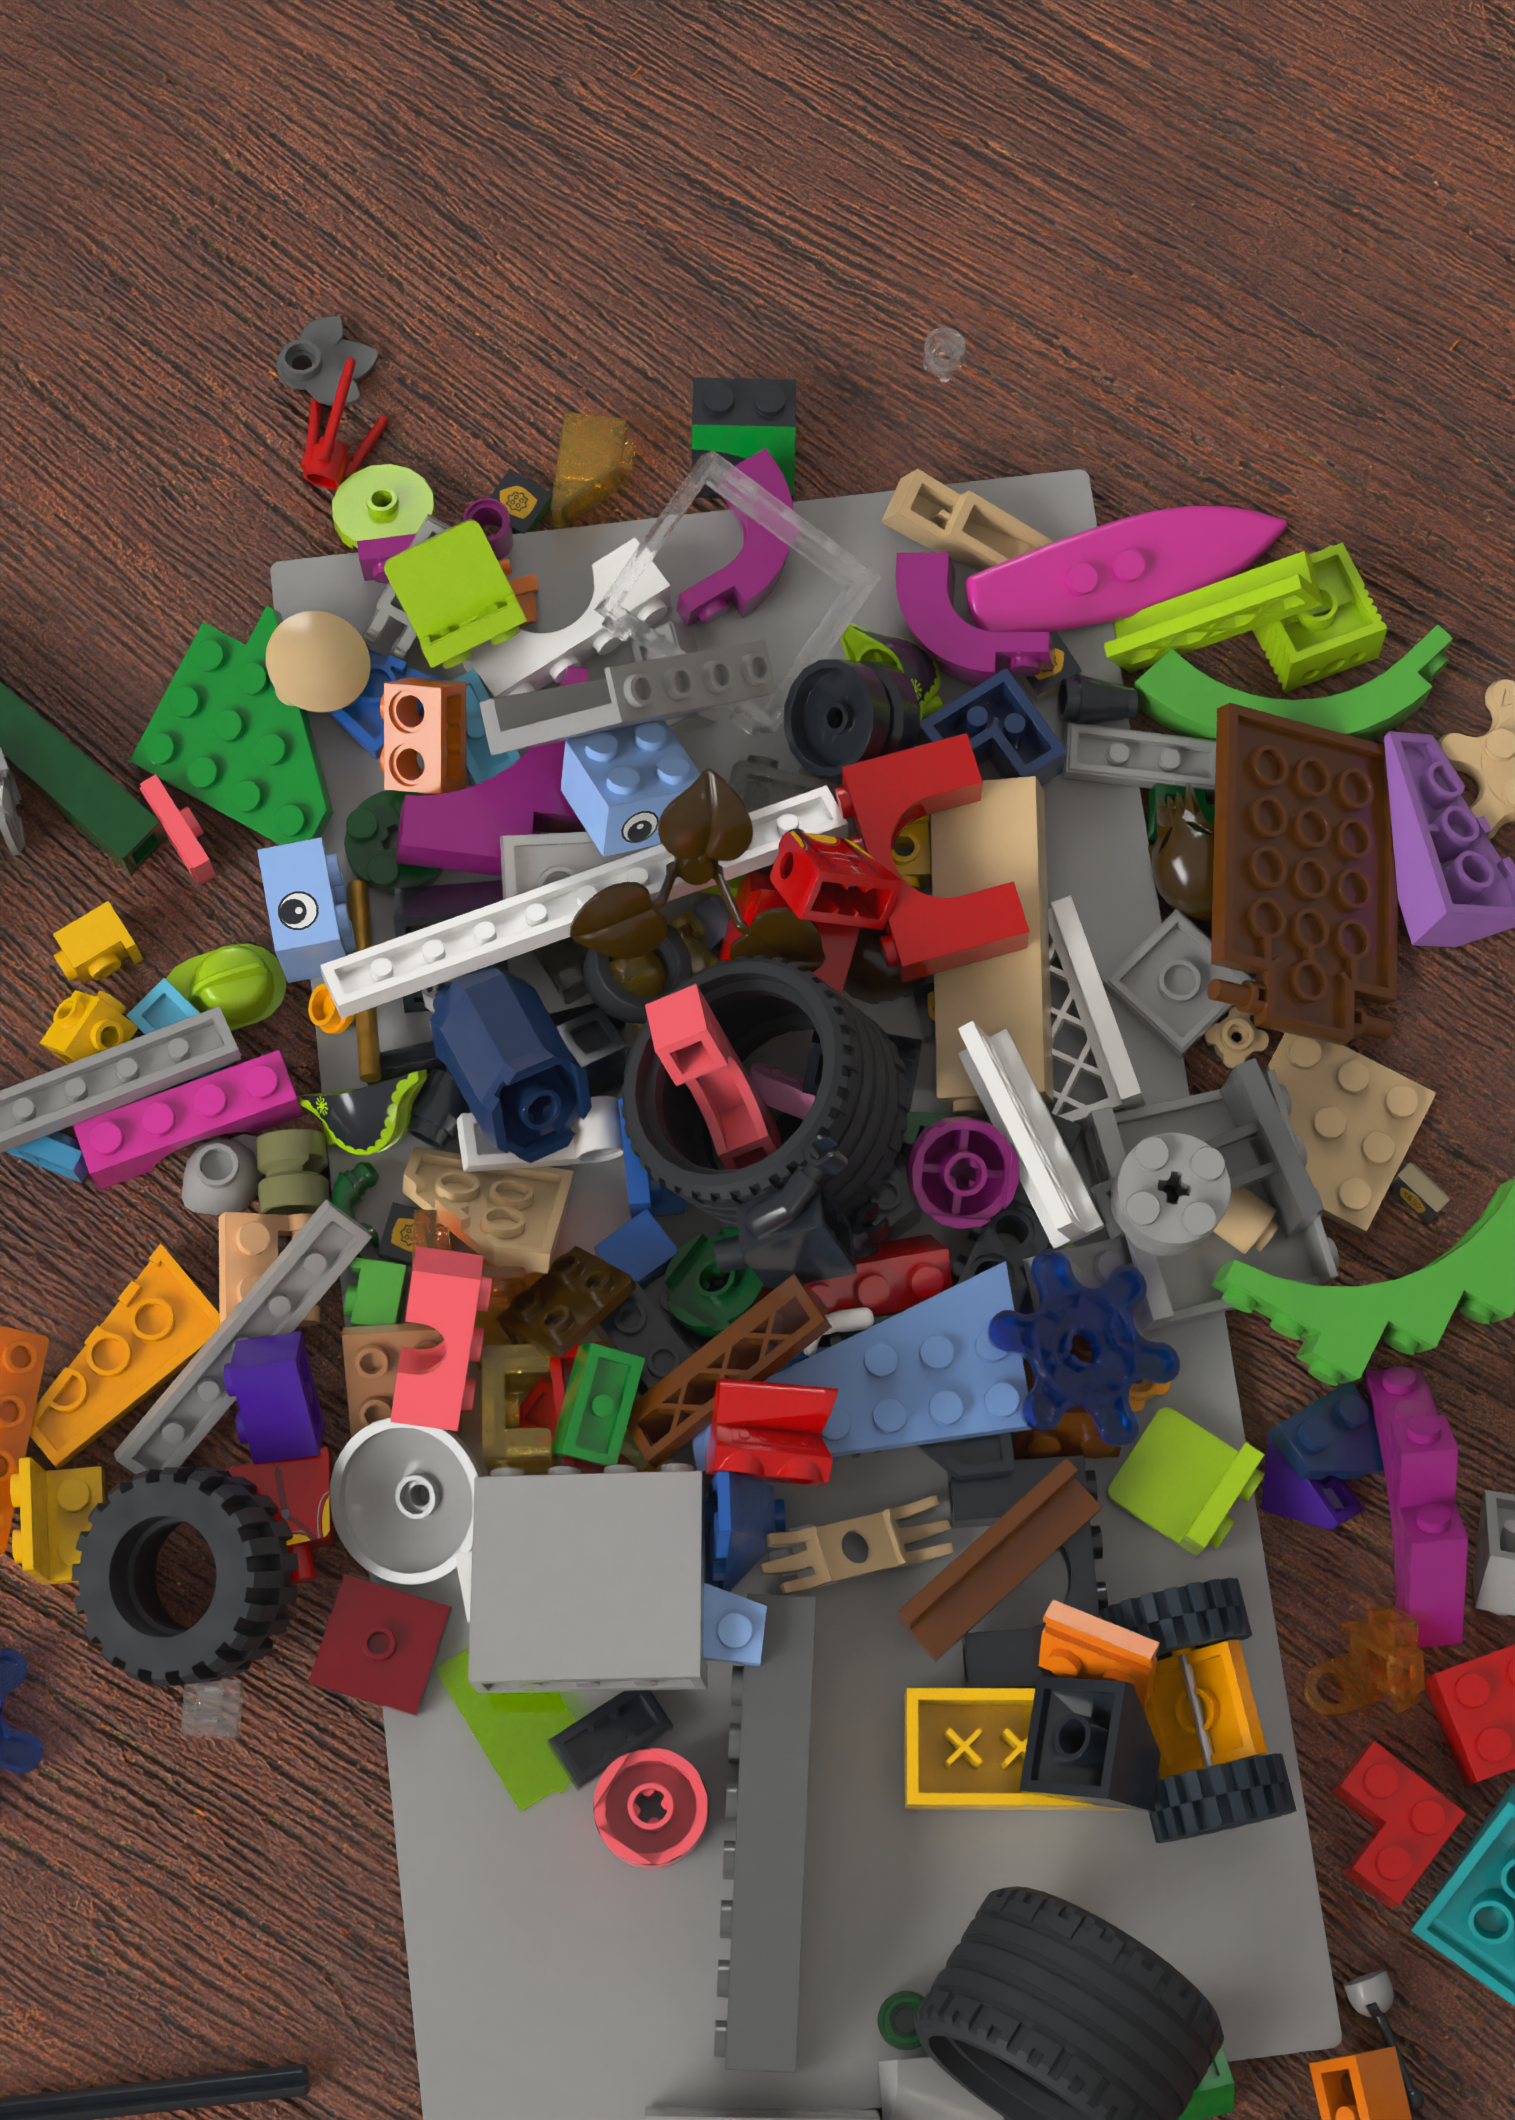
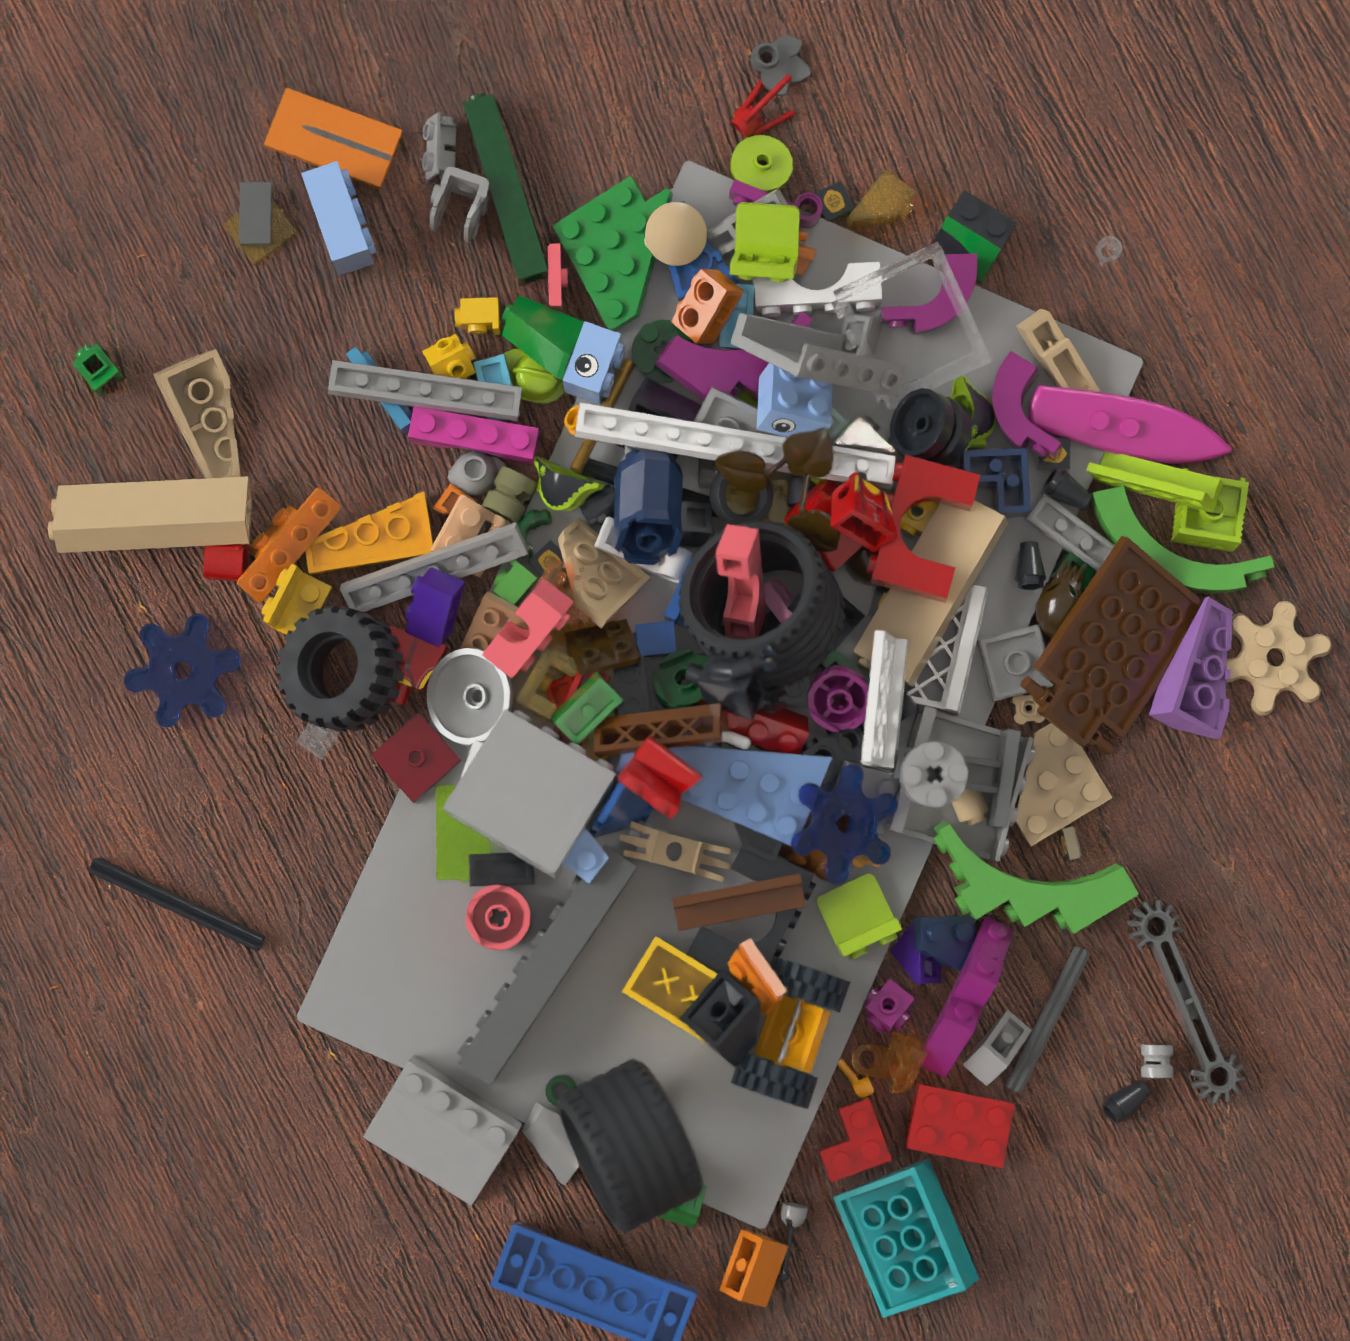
camera: 30 degrees right, 10 degrees up
(204, 1238) = (448, 499): none -> orange tile
(205, 915) = (542, 333): none -> green slope
(1113, 837) = (1030, 568): none -> black cone
(1314, 1590) = (890, 997): none -> magenta brick
(1348, 1737) = (861, 1087): none -> light orange hand

